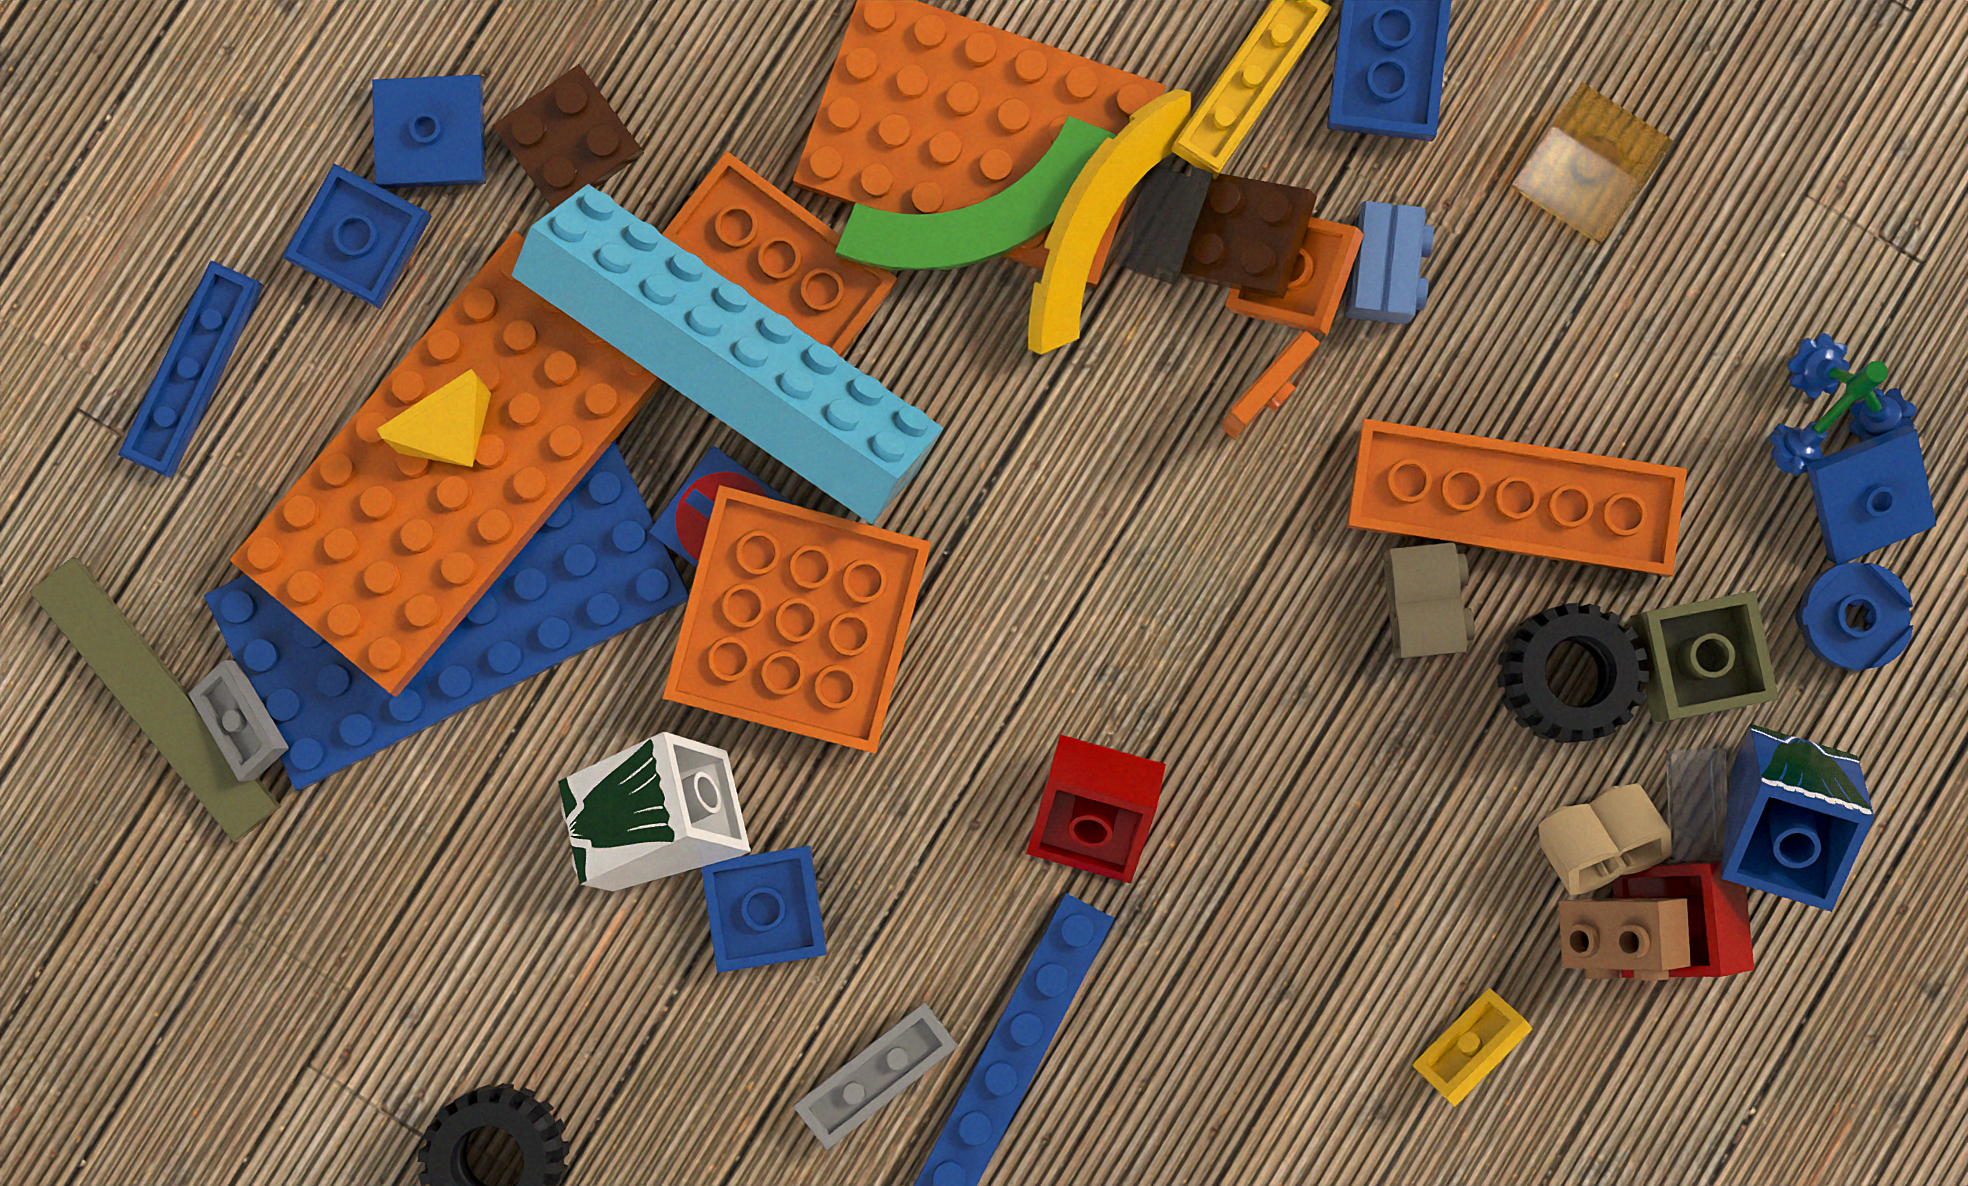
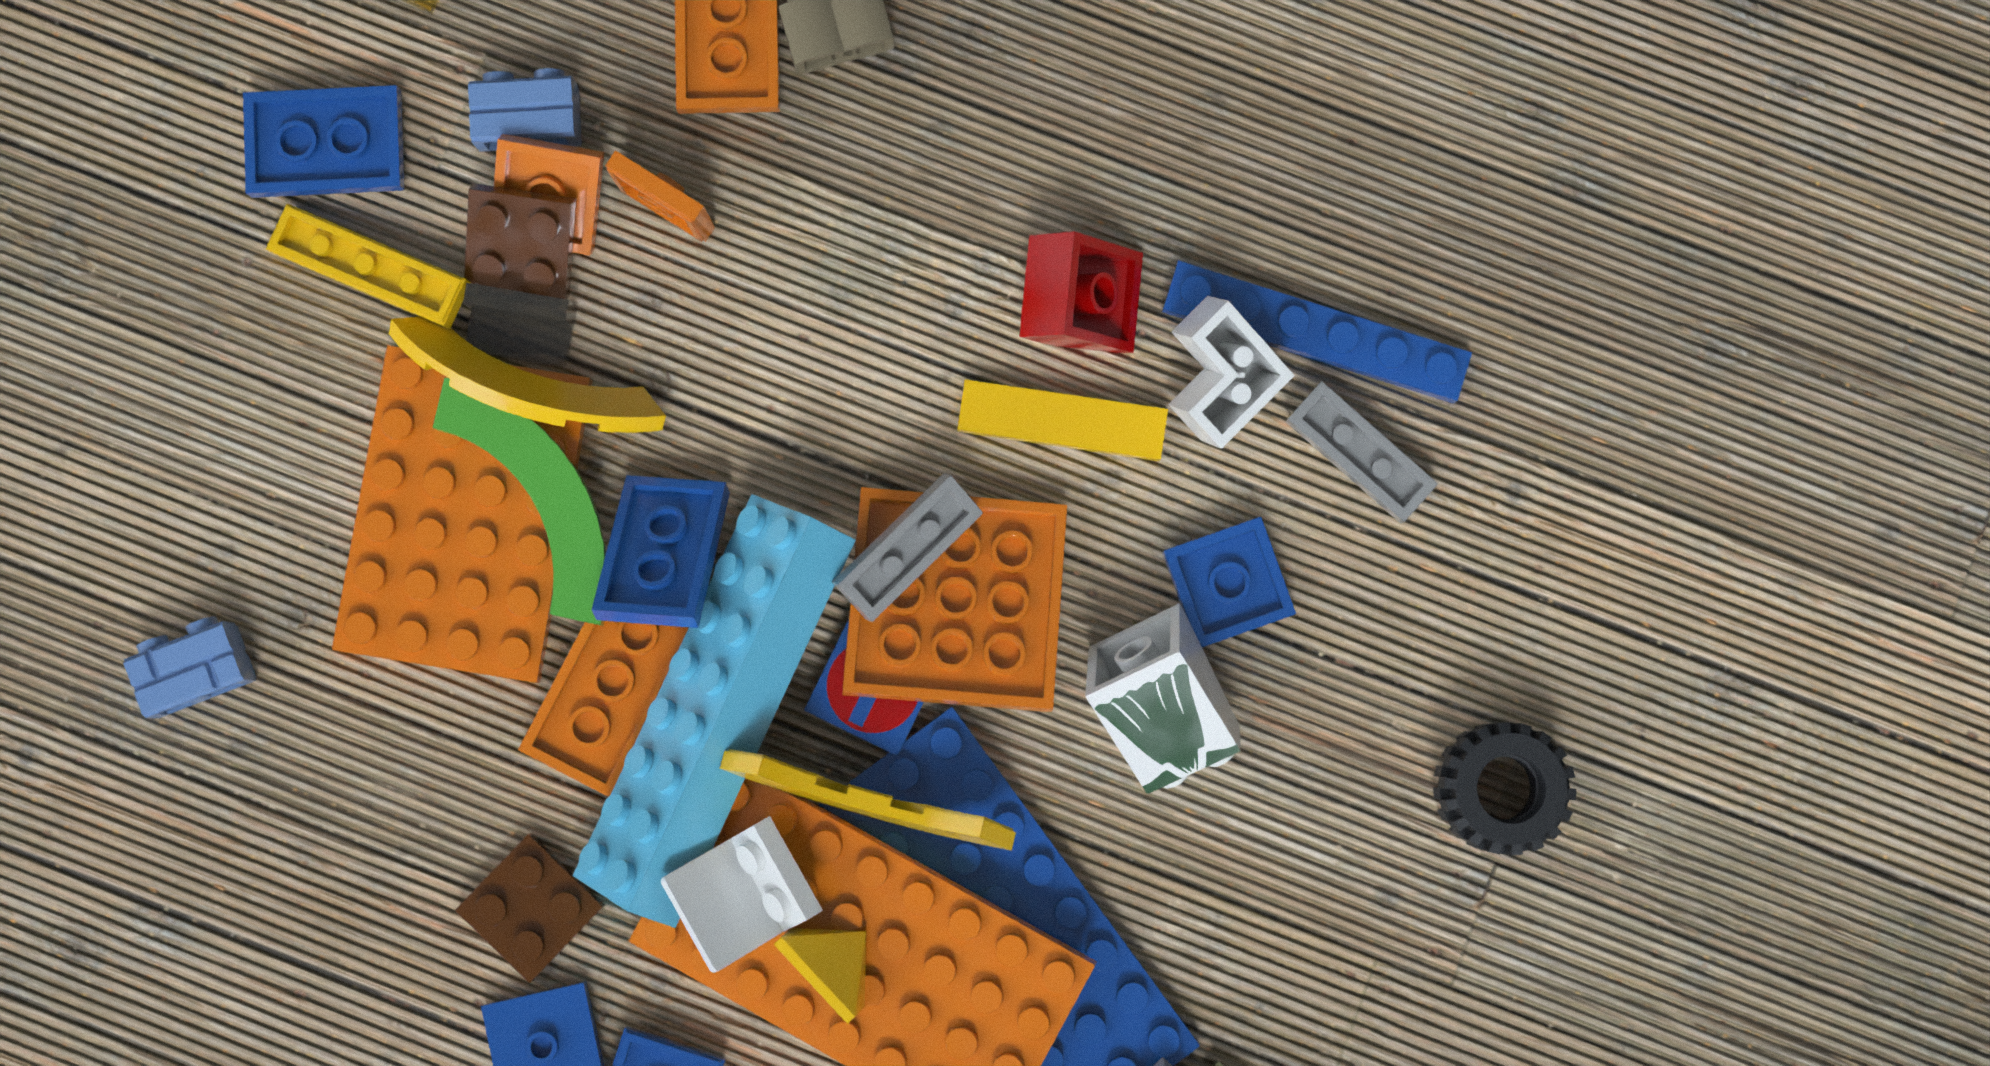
camera: 105 degrees left, 0 degrees up
(528, 343) = (740, 894): none -> white bracket
(602, 490) = (867, 802): none -> yellow tile
(855, 577) = (907, 547): none -> light grey plate
(899, 326) = (661, 551): none -> blue plate
(967, 766) = (1062, 420): none -> yellow tile
(974, 954) = (1237, 372): none -> white brick

